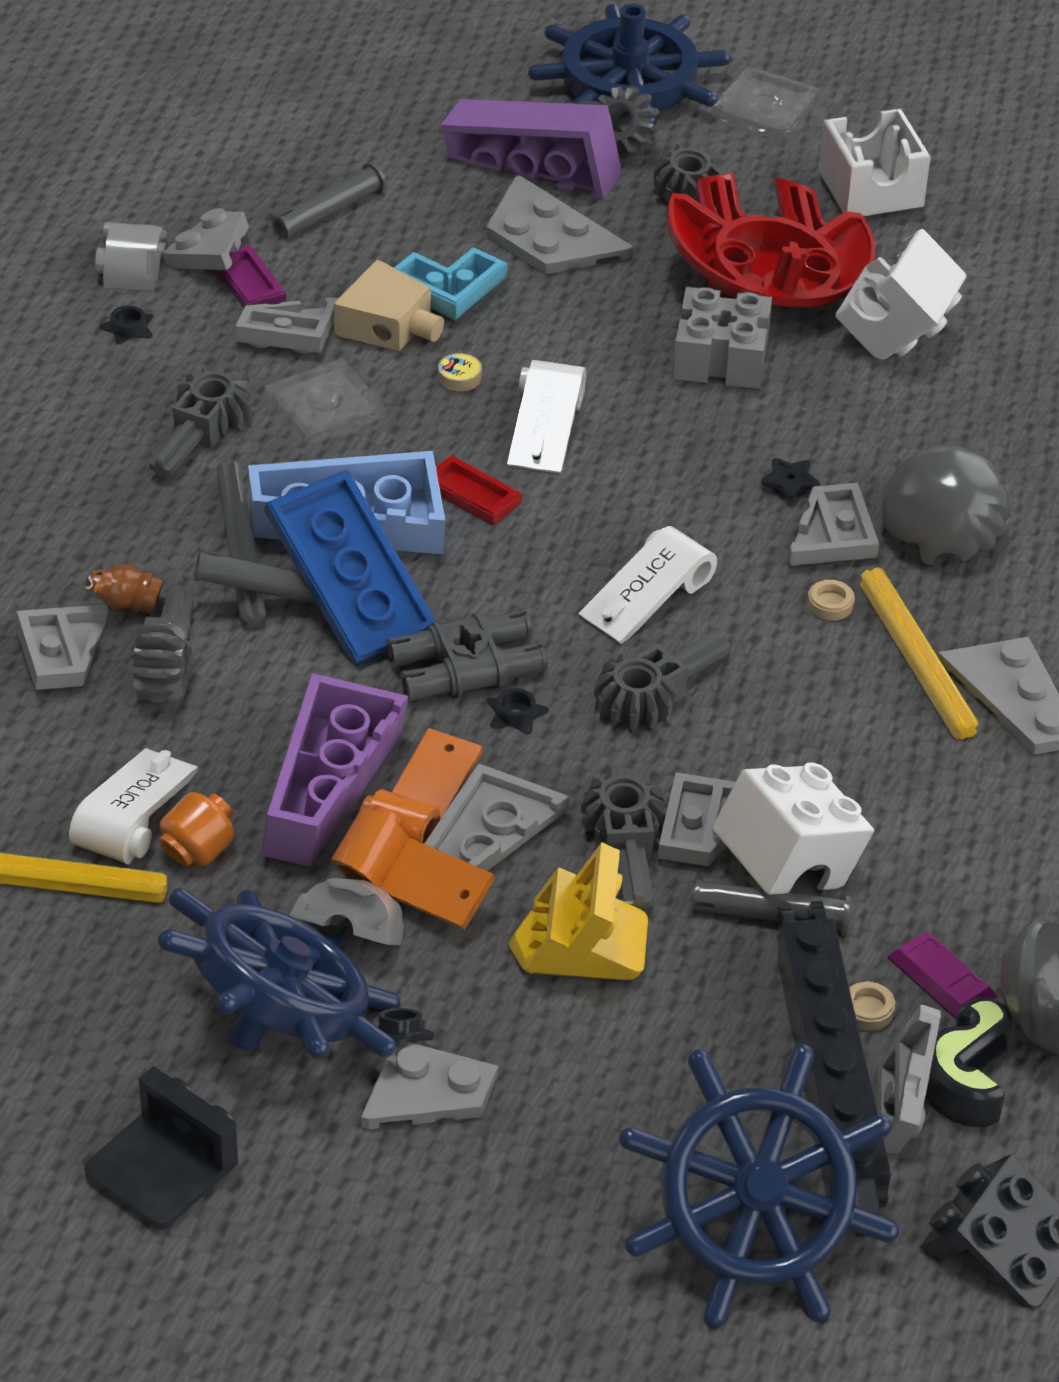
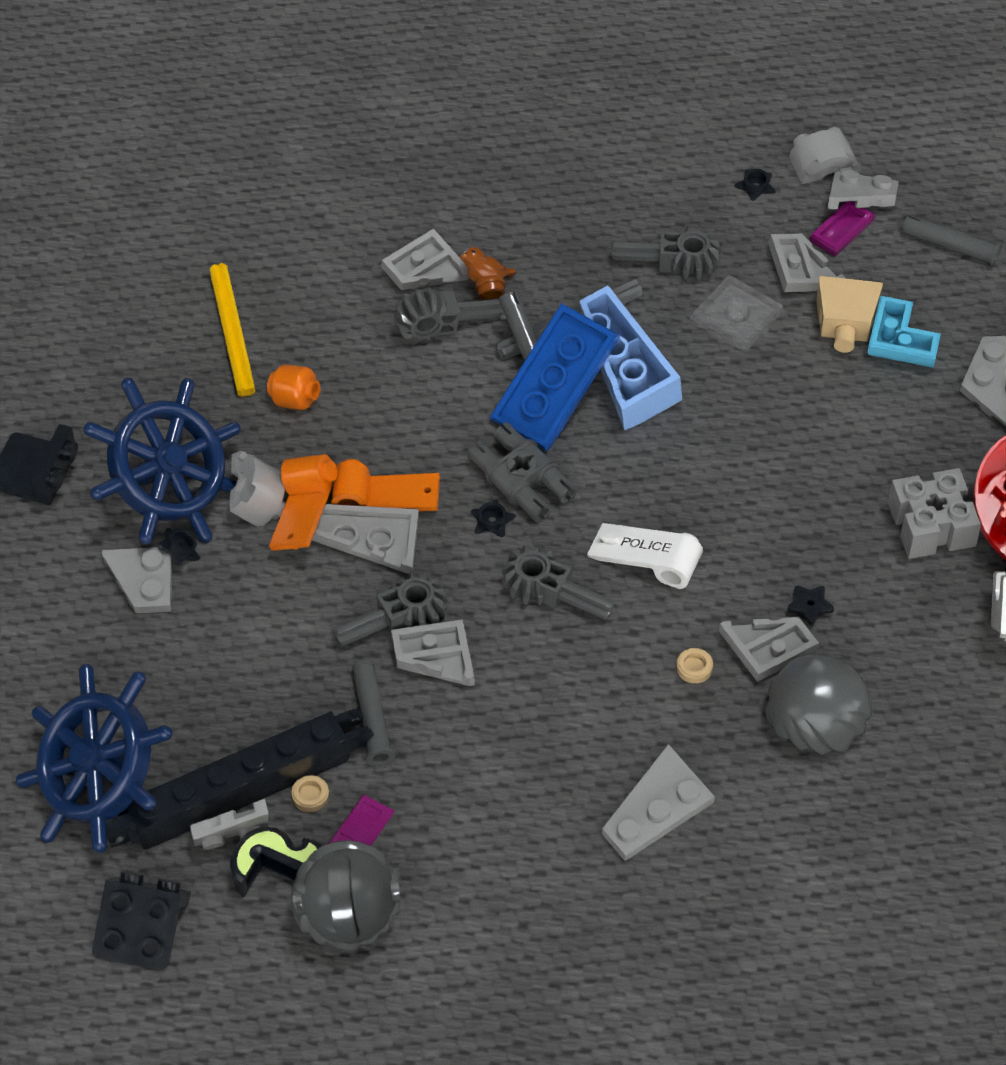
camera: 70 degrees right, 10 degrees up
(117, 813) = (289, 341): white door -> none
(329, 762) = (372, 429): medium lavender wedge -> none
(460, 372) = (813, 376): tile -> none
(476, 490) = (693, 424): red tile -> none
(546, 415) = (810, 429): white door -> none
(581, 925) = (297, 614): yellow piece -> none
(791, 823) = (424, 693): white piece -> none
(919, 654) = (665, 733): yellow axle -> none

